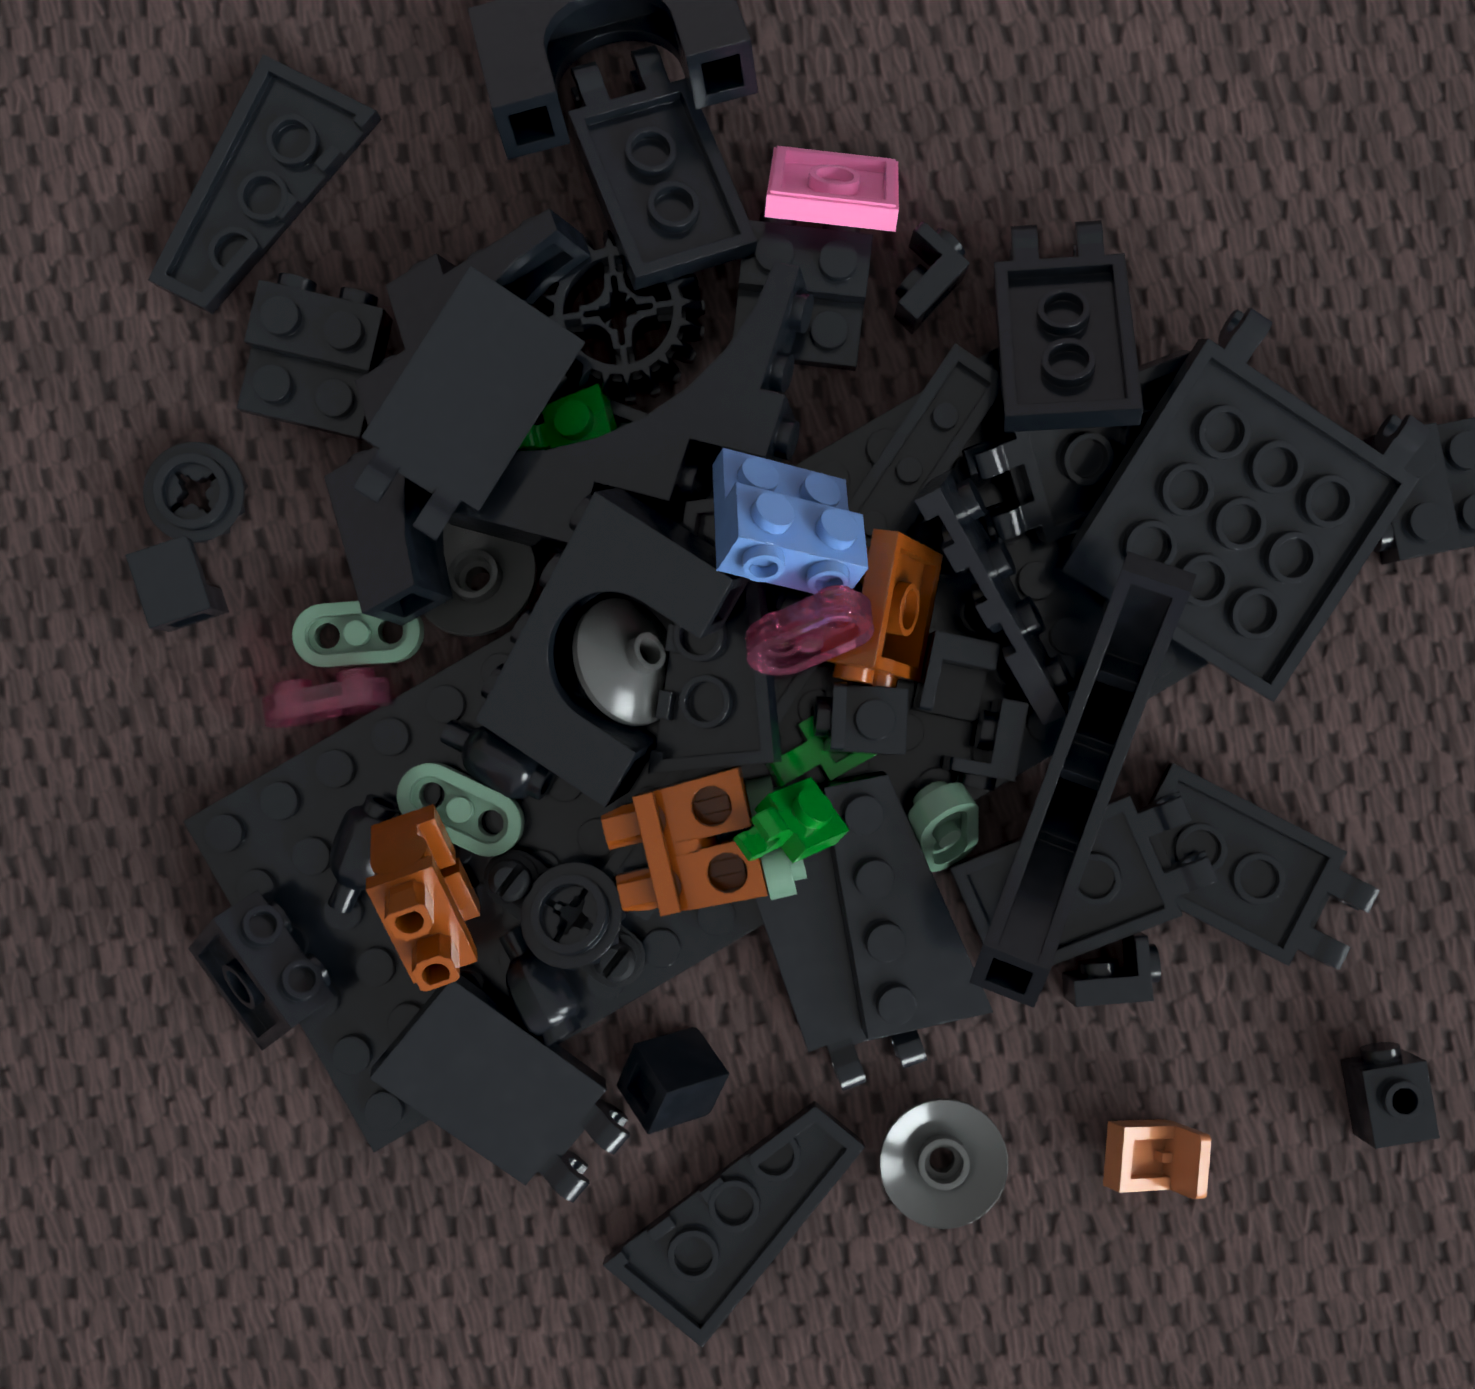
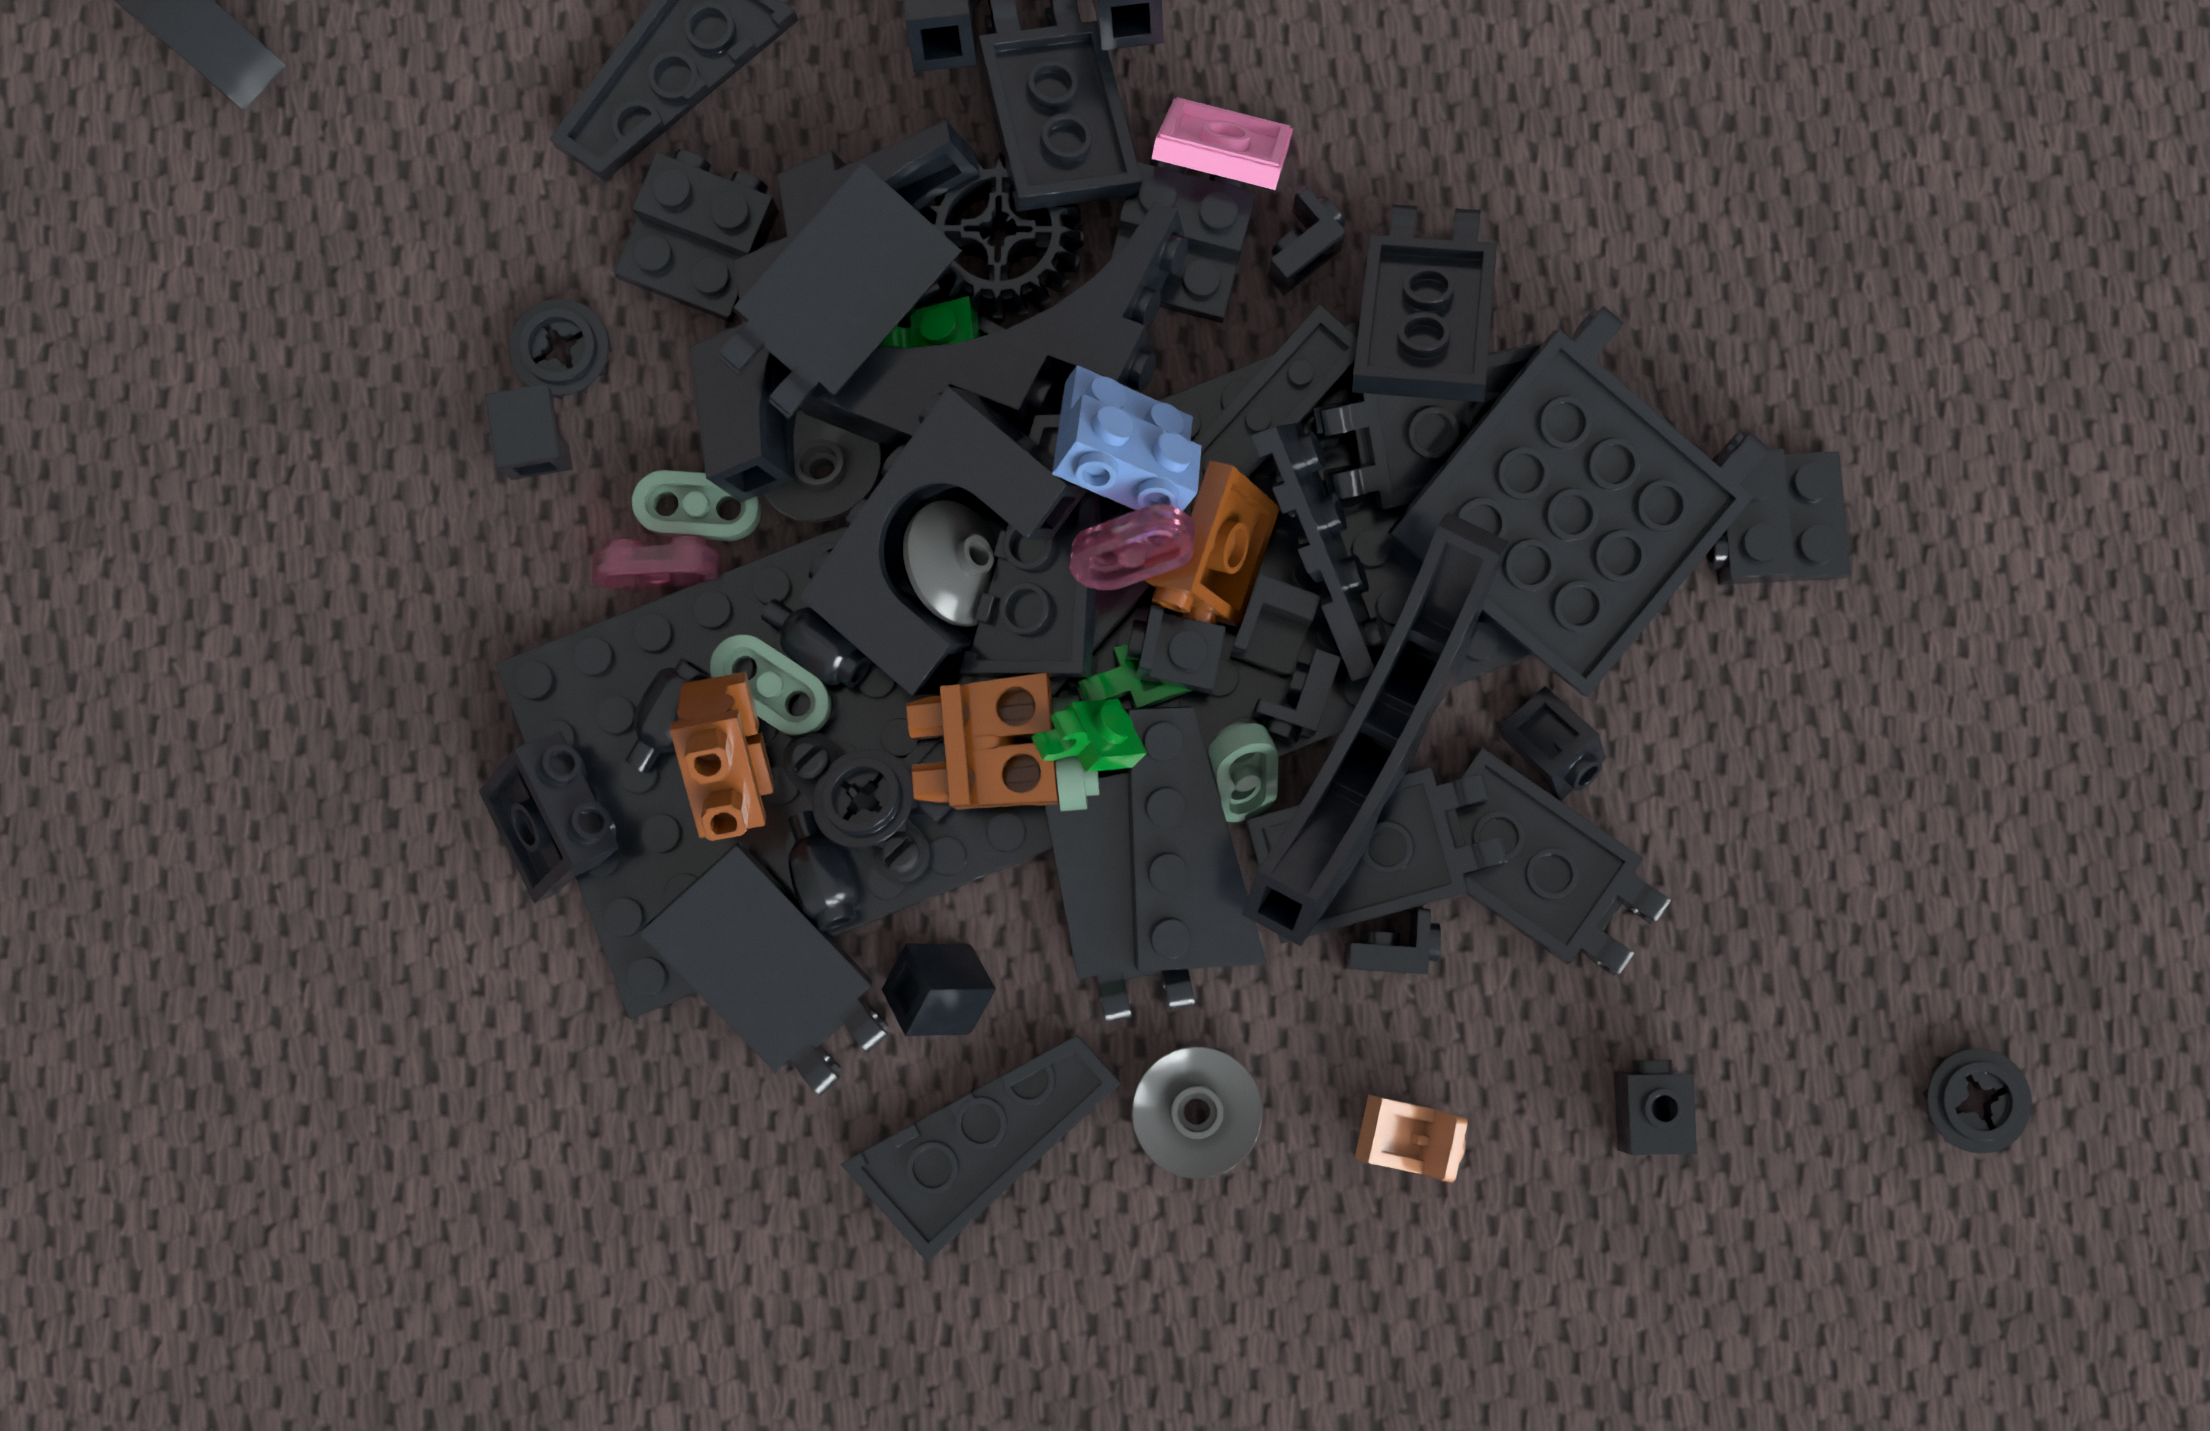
camera: 15 degrees right, 5 degrees down
(1244, 747) = (1555, 743): none -> black bracket

